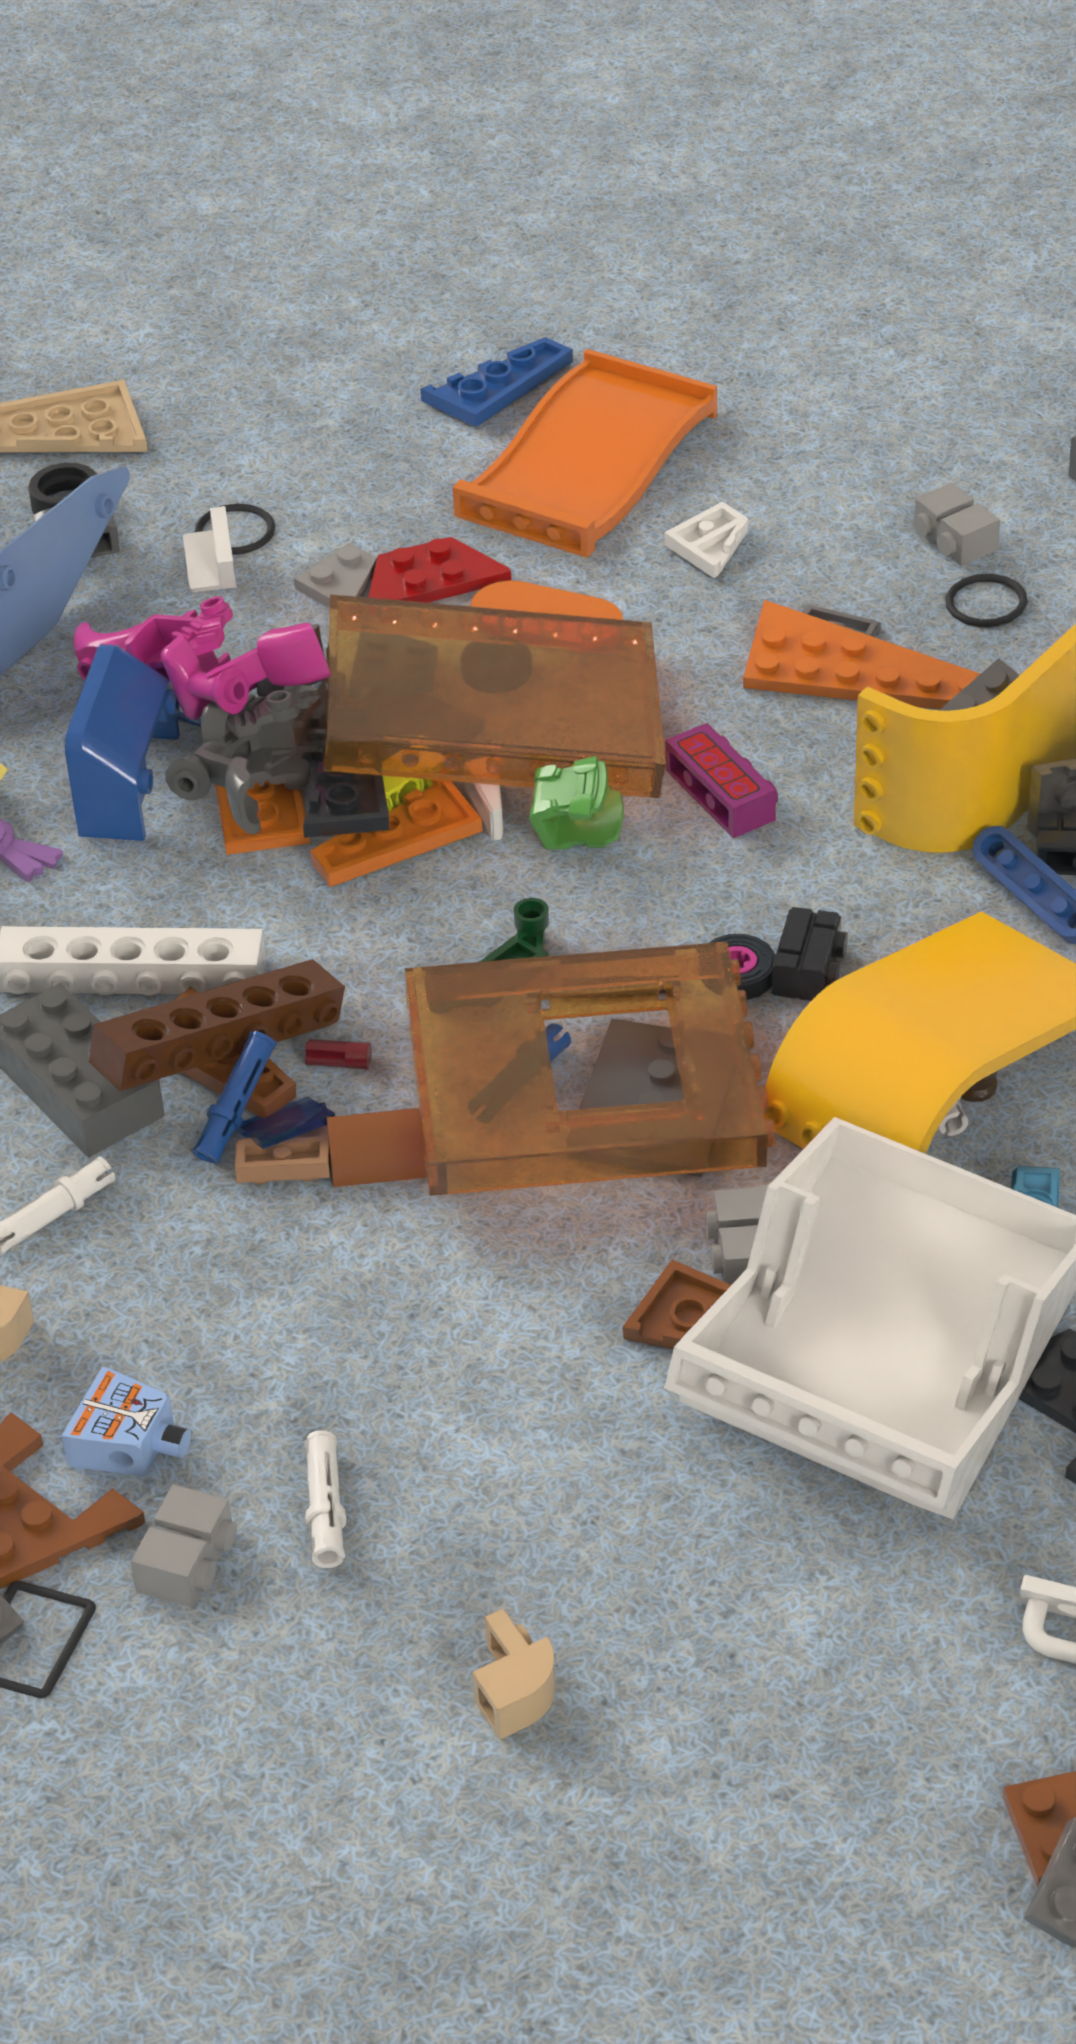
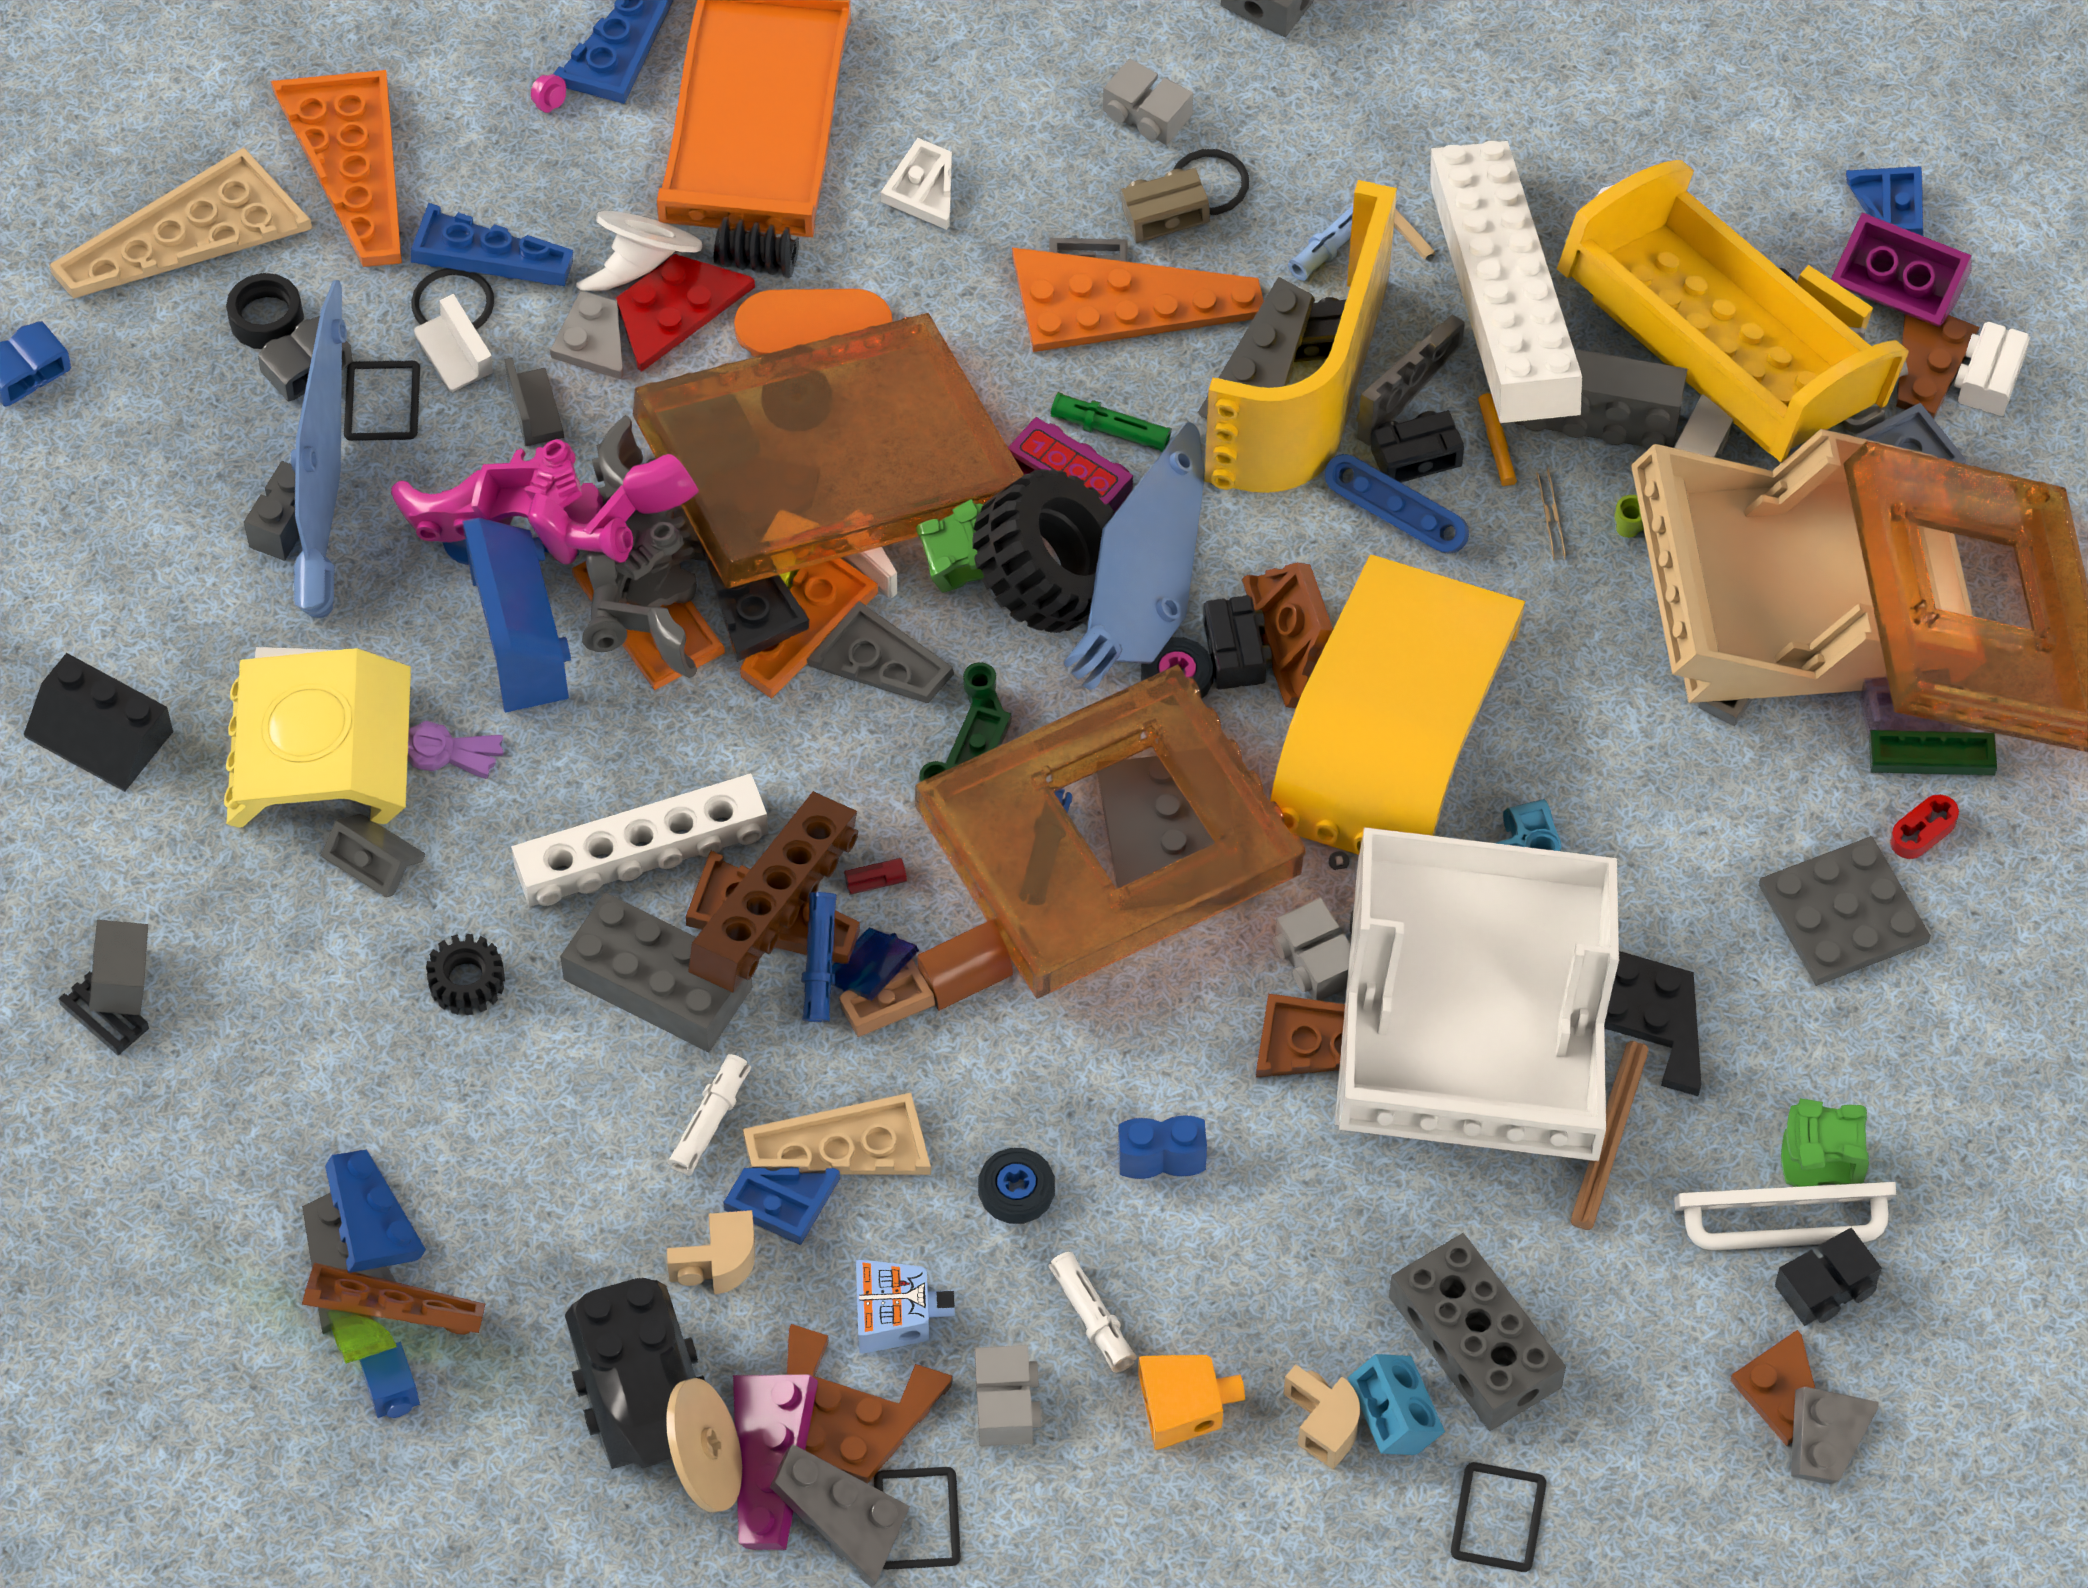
camera: 25 degrees left, 15 degrees up
(75, 1300) = (782, 1199): none -> blue wing
(82, 601) = (350, 394): none -> black piece
(174, 1269) = (854, 1139): none -> tan wing
(213, 405) = (349, 144): none -> orange wing
(253, 610) = (534, 404): none -> dark grey panel
(278, 494) = (493, 251): none -> blue wing
(312, 1378) = (1020, 1205): none -> black bush
(371, 1608) = (1184, 1396): none -> light orange torso
(411, 401) = (548, 92): none -> dark pink plate
(414, 523) = (638, 248): none -> white piece
(452, 878) = (881, 656): none -> dark grey wing
(483, 1365) = (1156, 1147): none -> blue brick
(525, 545) = (756, 248): none -> black piece
(595, 1687) = (1396, 1404): none -> dark azure brick
(621, 840) = (1019, 564): none -> black tyre
(693, 1877) = (1535, 1520): none -> black piece
(727, 1704) = (1469, 1356): none -> dark grey brick
(742, 863) = (1145, 564): none -> medium blue wing
(772, 746) = (1095, 417): none -> green pin
(874, 930) = (1294, 624): none -> dark orange wing
(929, 601) = (1165, 204): none -> dark tan brick
(979, 1505) = (1617, 1113): none -> medium nougat axle

